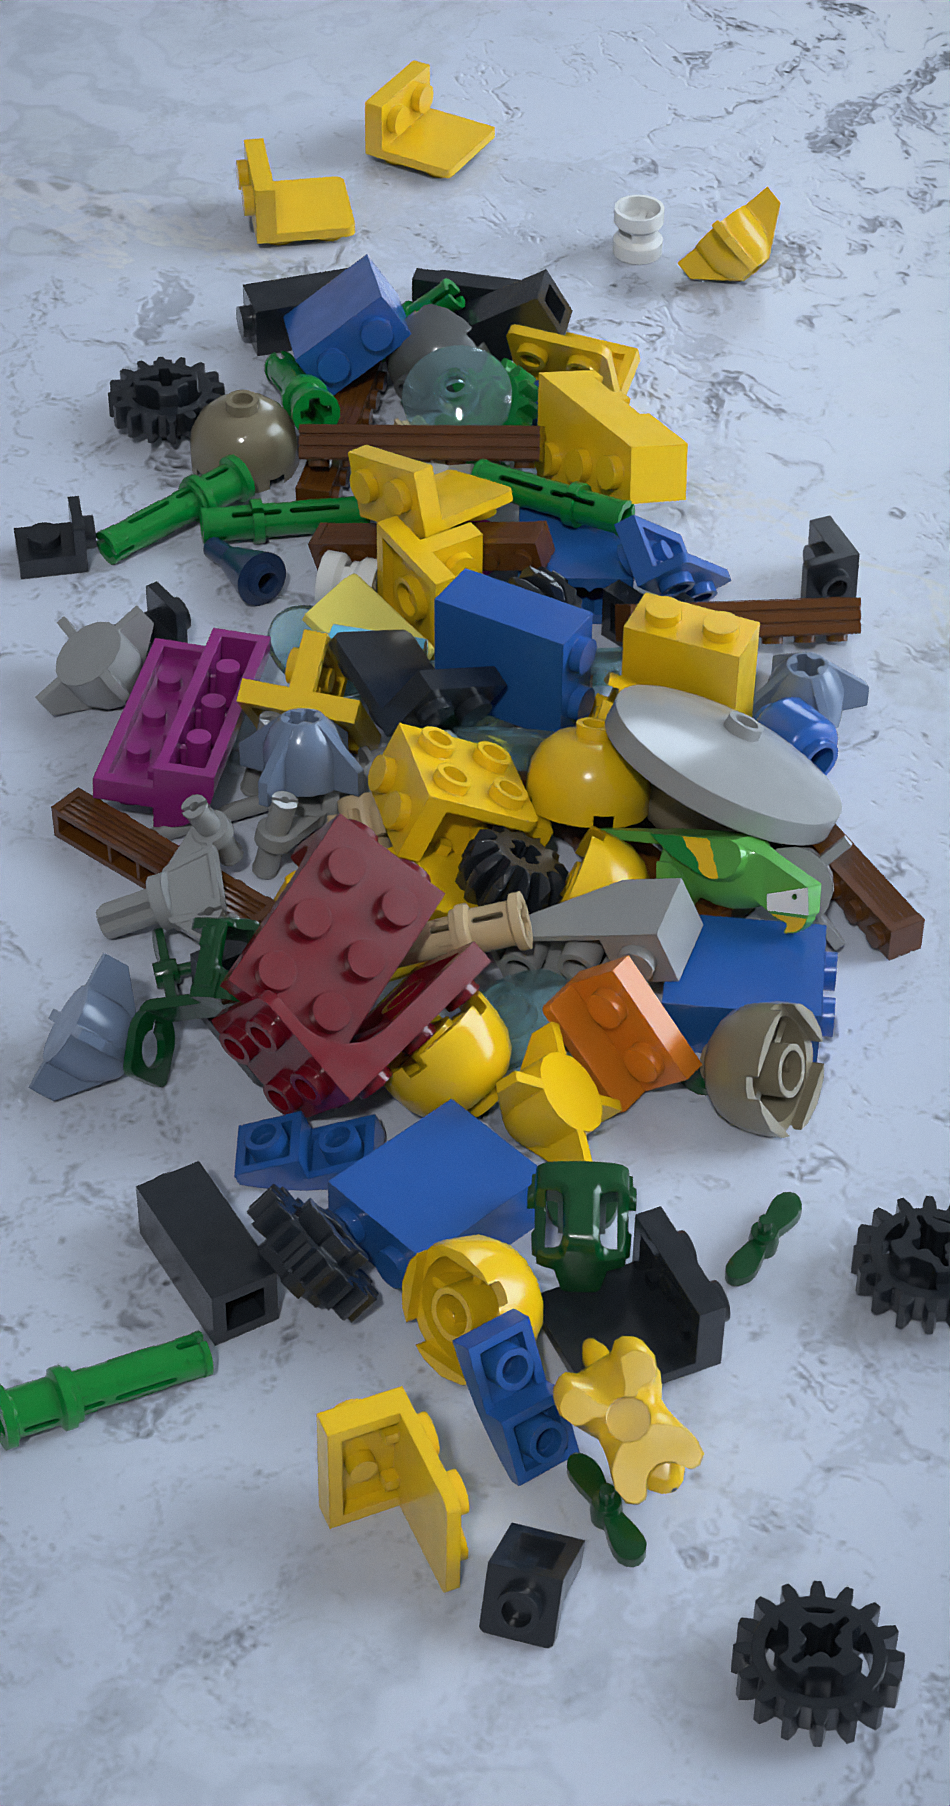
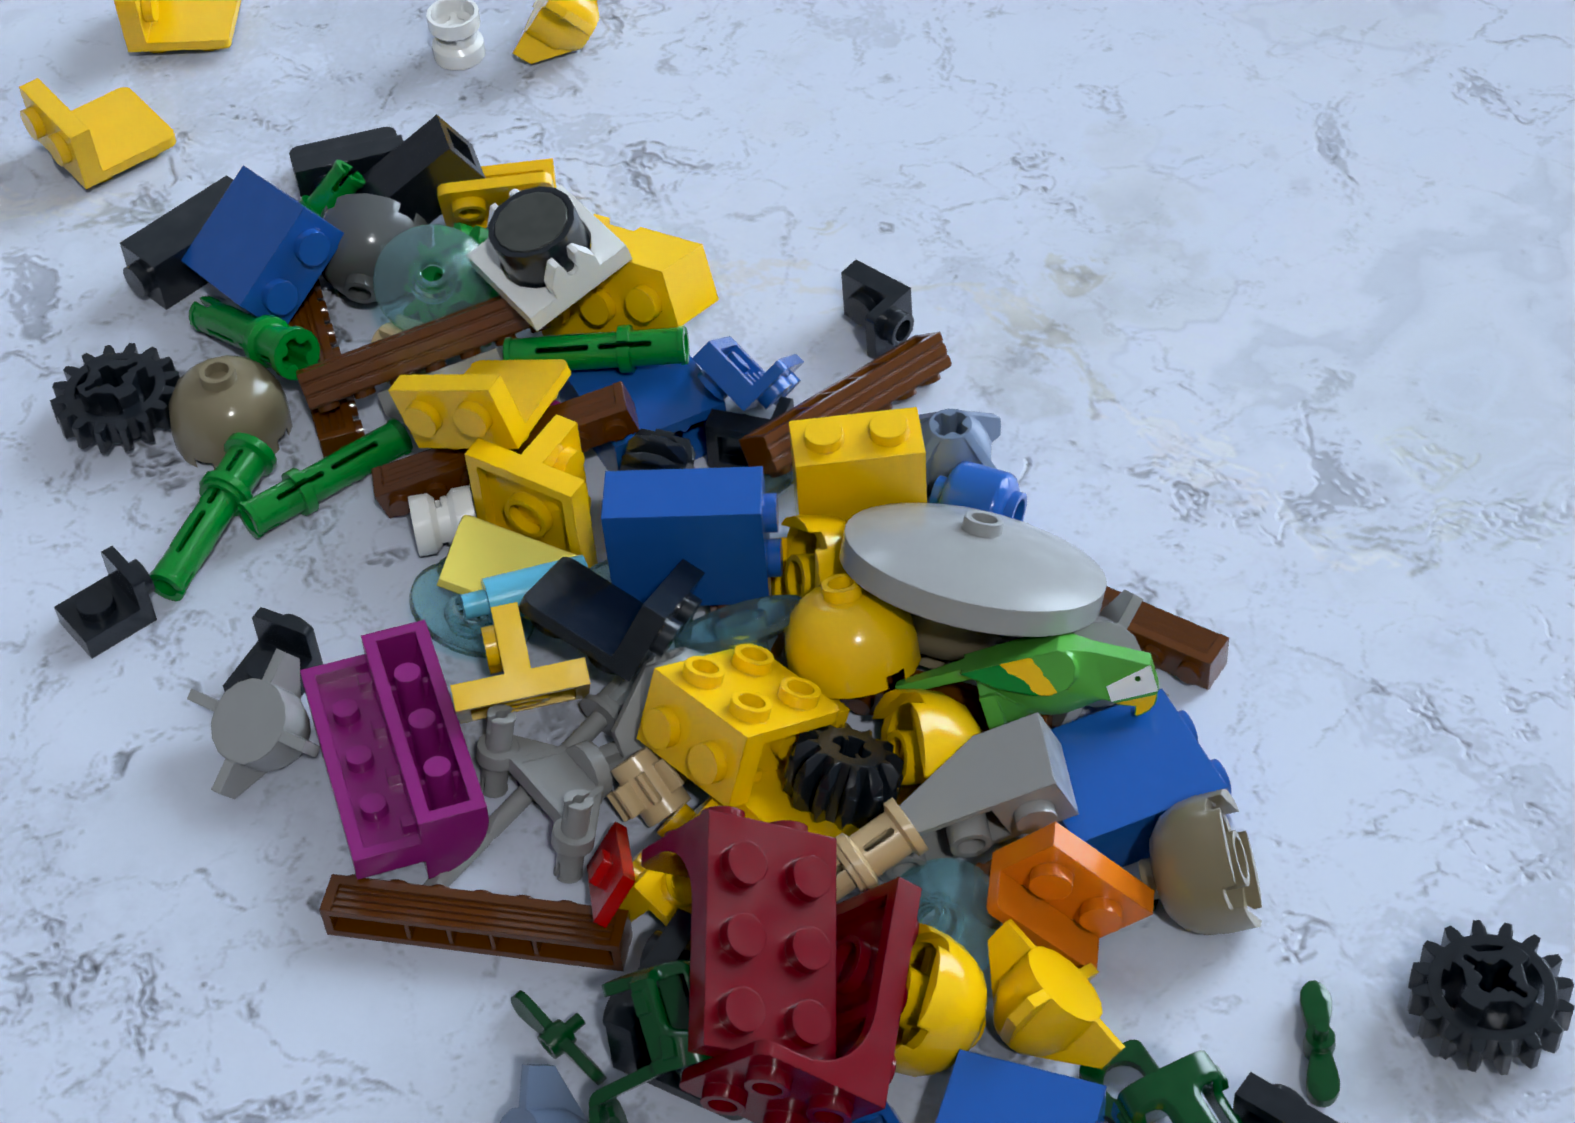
camera: 25 degrees left, 5 degrees up
(187, 885) = (529, 942): light grey axle -> none
(253, 573) = (336, 551): dark blue cone -> none
(272, 875) = (610, 874): none -> red piece
(302, 756) = (558, 744): sand blue piece -> none
(547, 396) = (545, 249): none -> piece

